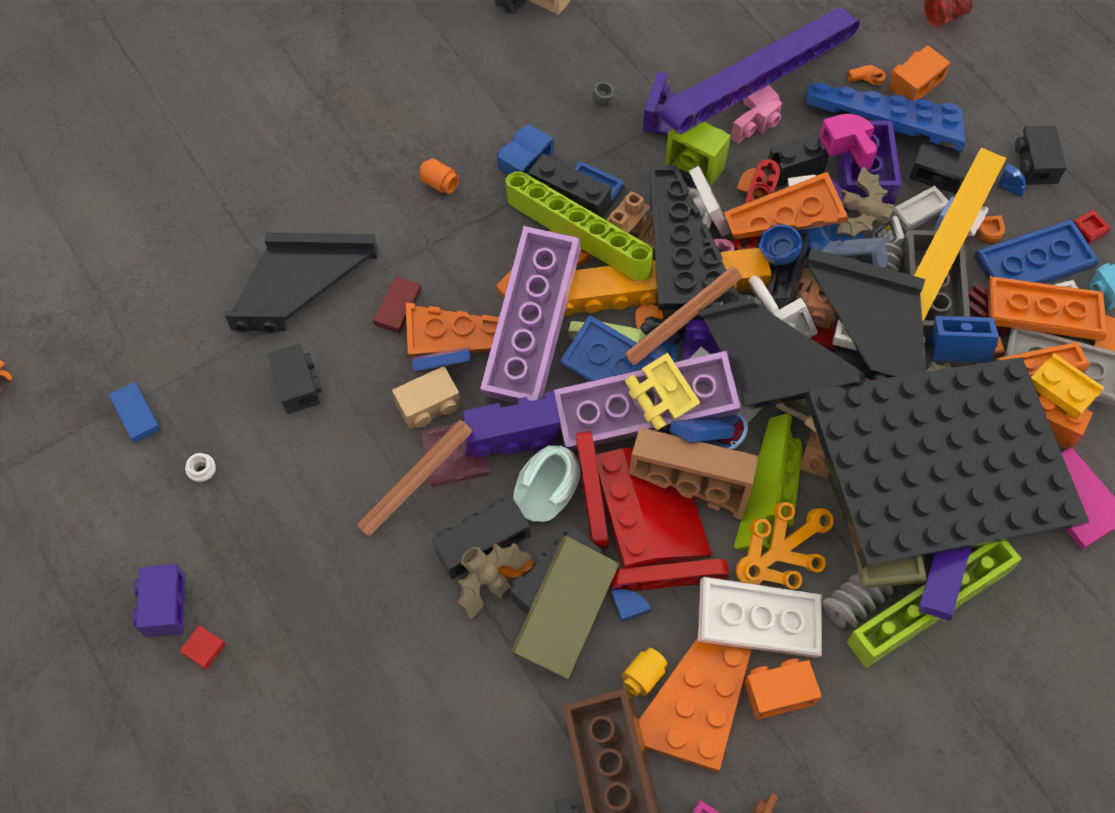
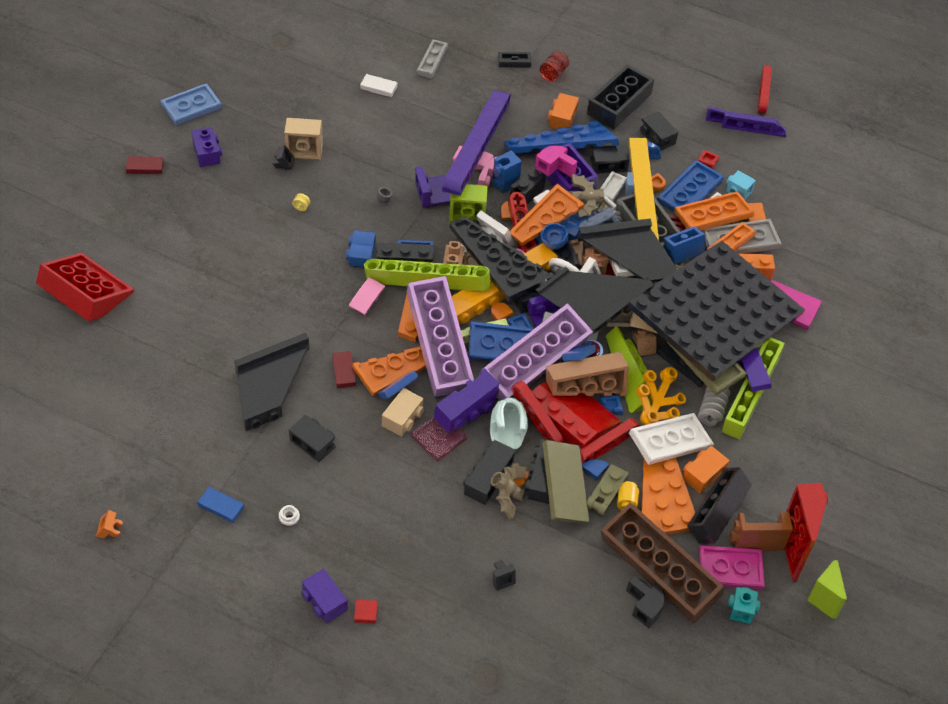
camera: 35 degrees left, 10 degrees down
(172, 60) = (83, 285): none -> red slope
(400, 695) = (503, 575): none -> black tile
(414, 478) = (430, 456): nougat axle -> none
(438, 176) = (317, 284): orange brick -> none
(488, 218) = (366, 296): none -> bright pink slope
(492, 60) = (301, 202): none -> light yellow bush
(624, 644) = (607, 489): none -> olive plate
(653, 322) = (515, 311): black arm -> none
(670, 387) = (548, 335): light yellow plate -> none
(683, 315) = (527, 297): nougat axle -> none
(714, 523) = (612, 404): none -> blue tile
(764, 757) = (719, 505): none -> black brick
(778, 124) = (506, 171): none -> blue brick
(866, 73) = (533, 122): orange arm -> none
(1014, 83) = (620, 96): none -> black brick
(1066, 386) = (752, 246): yellow plate -> none

